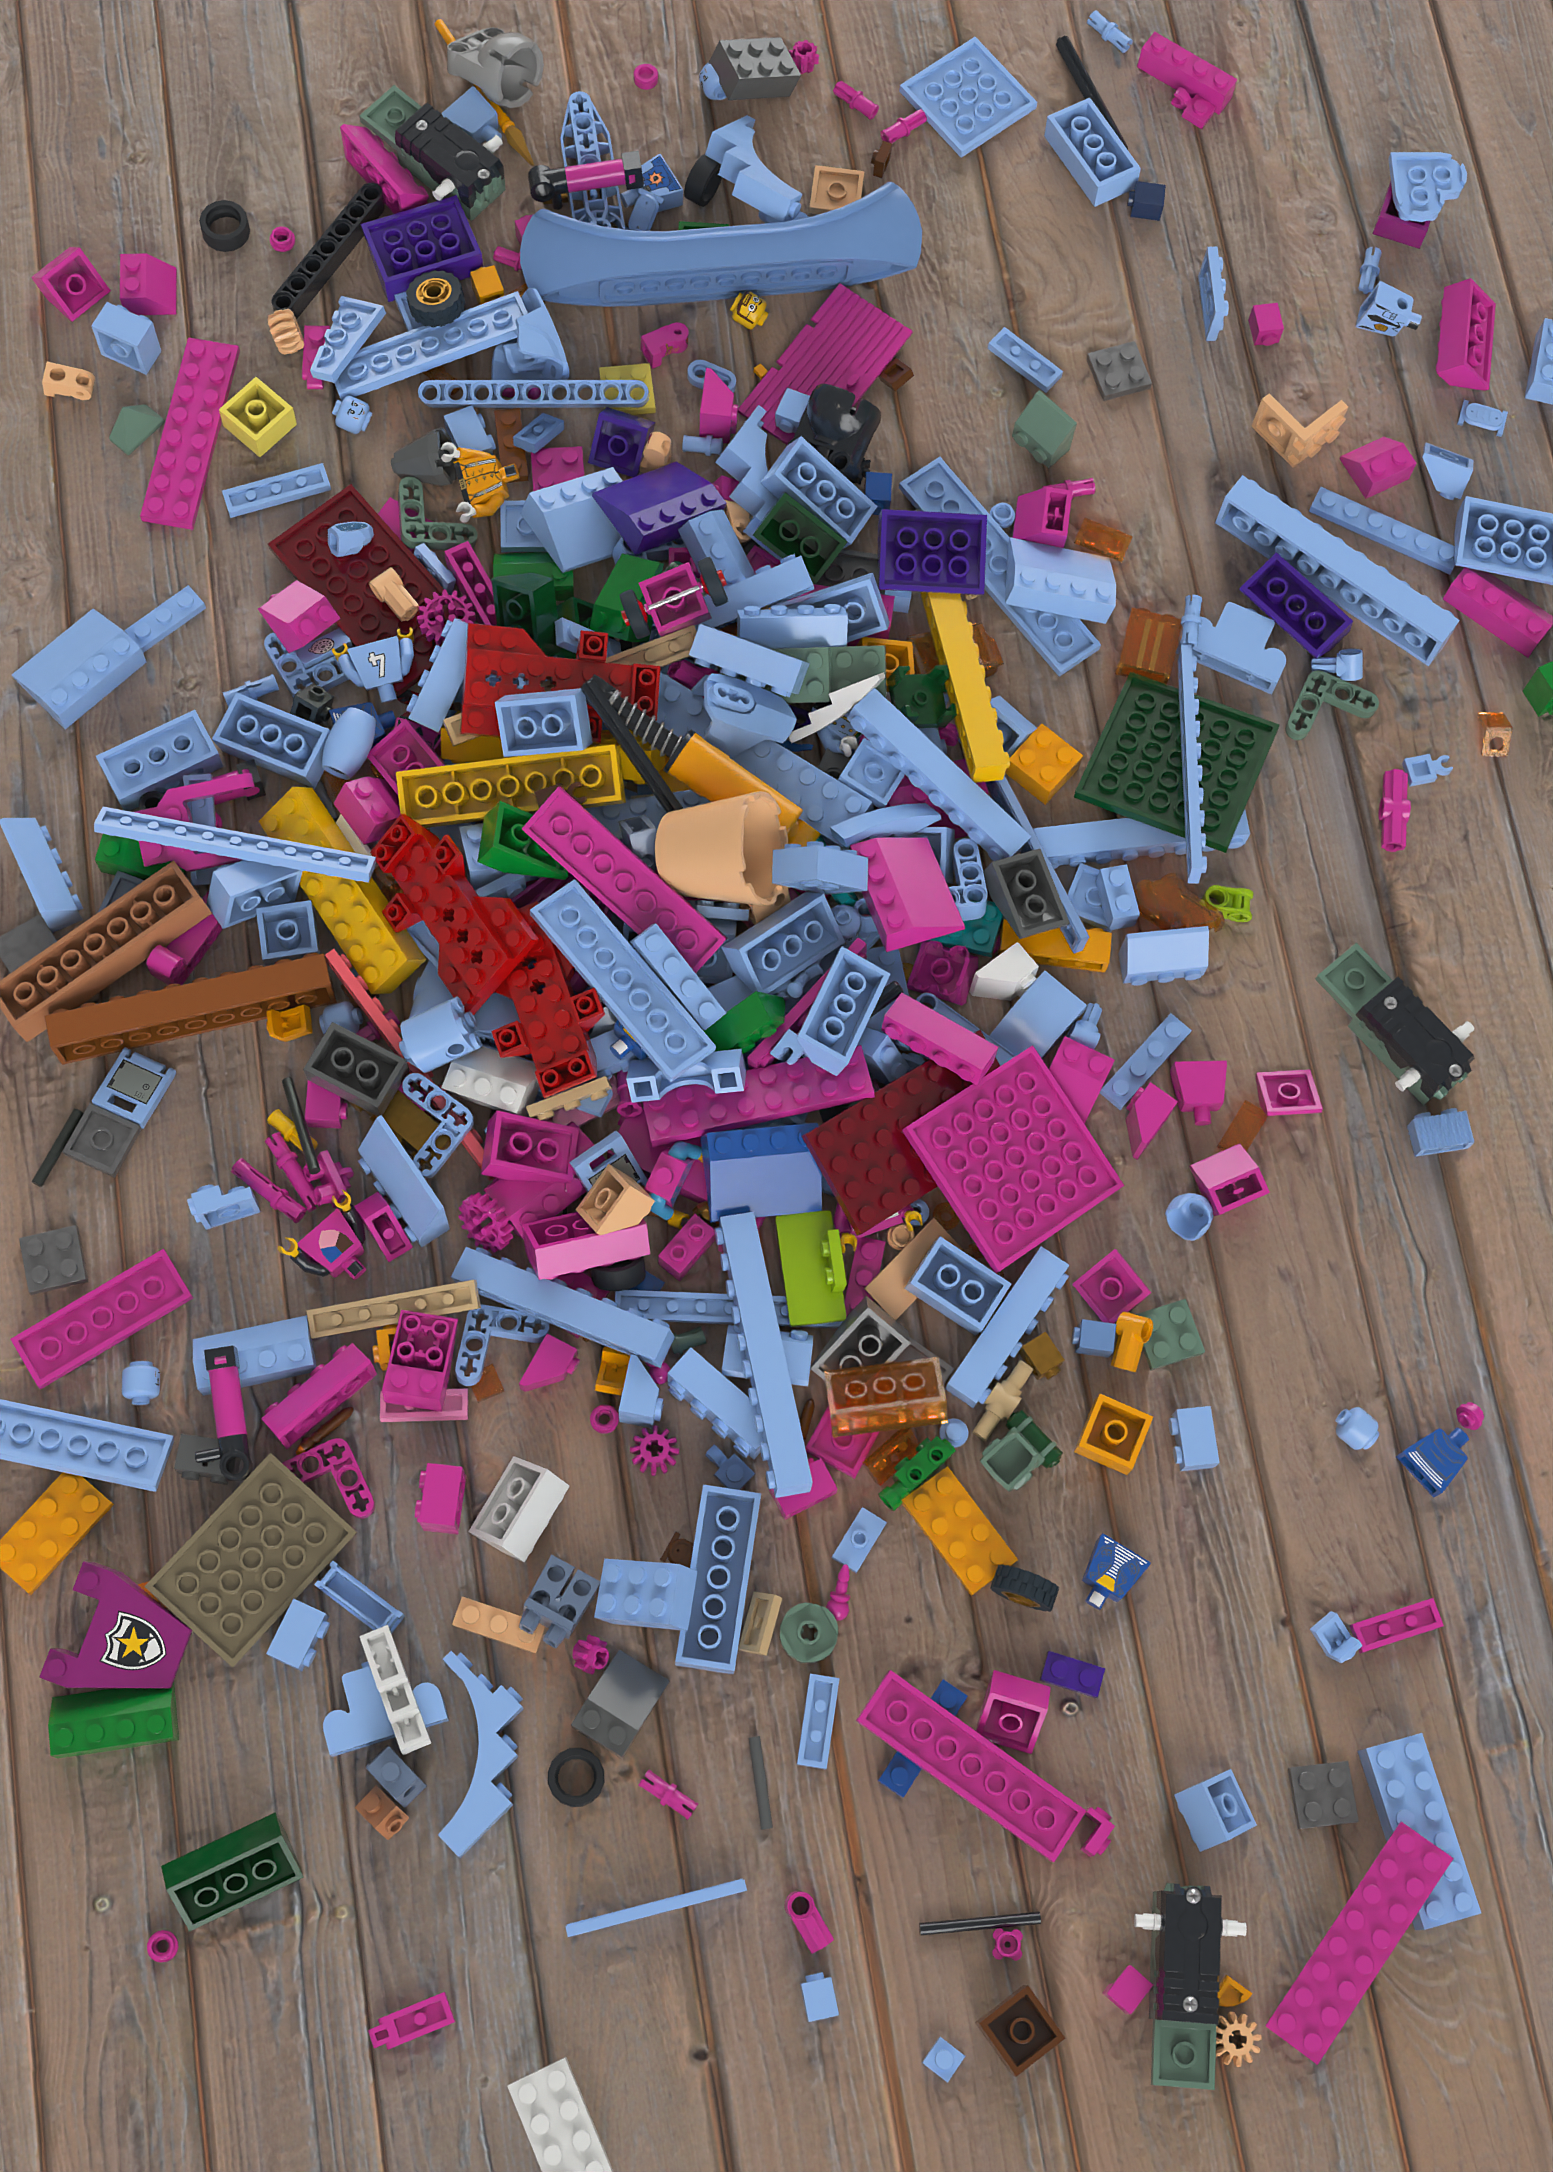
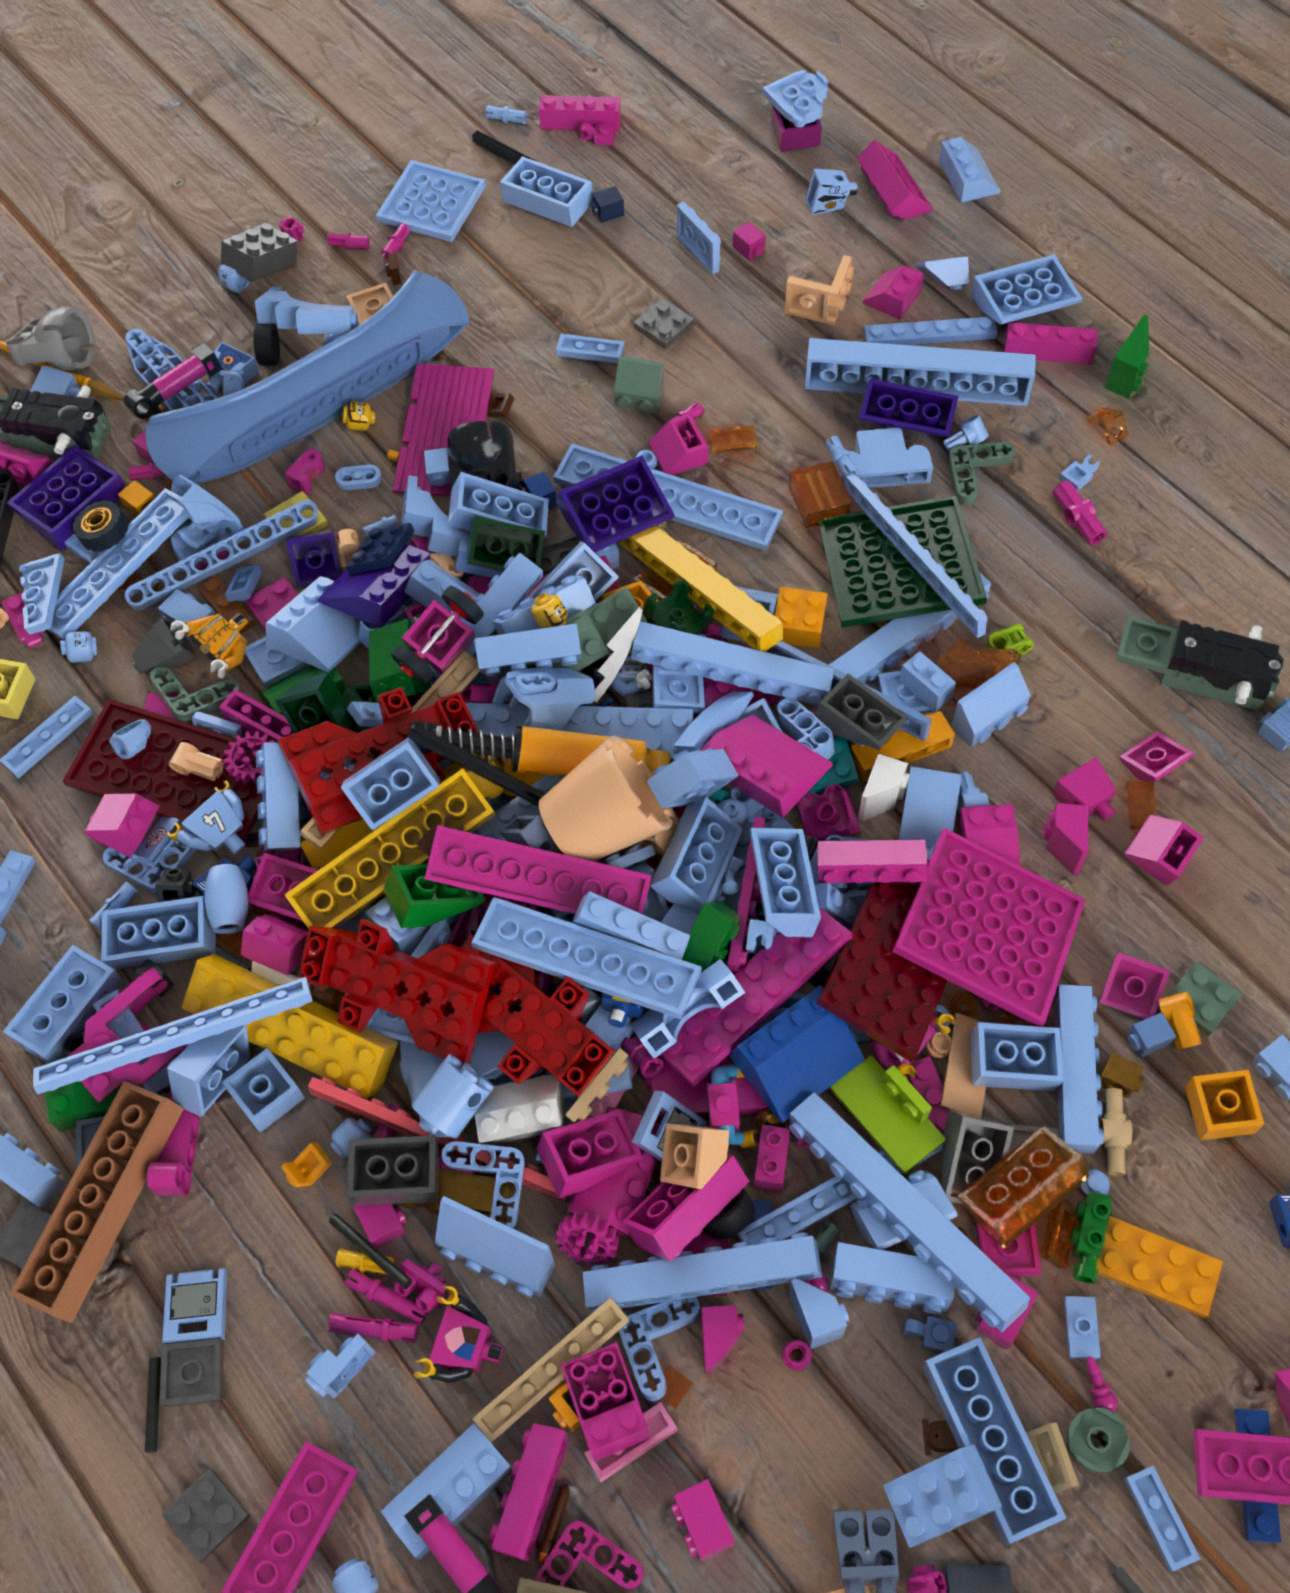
camera: 20 degrees left, 10 degrees down
(189, 1008) = (206, 1207): dark orange brick -> none
(383, 1226) = (496, 1298): dark pink slope -> none
(519, 1508) = (775, 1486): white slope -> none
(612, 1371) = (778, 1307): light orange bracket -> none
(645, 76) = (176, 300): dark pink tile -> none
(663, 1445) = (856, 1366): dark pink gear -> none
(682, 471) = (380, 548): none -> dark blue plate
(717, 409) = (378, 492): dark pink slope -> none
(791, 632) = (549, 611): none -> yellow head
(1019, 1452) = (1160, 1167): sand green piece -> none
(1024, 1588) = (1251, 1282): black wheel -> none
(1059, 581) = (723, 482): light blue slope -> none
(1145, 1061) = (1031, 794): light blue plate -> none
(1189, 1215) = (1154, 893): light blue hair -> none
(1369, 270) = (796, 173): light blue axle -> none
(1483, 417) = (942, 227): light blue piece -> none

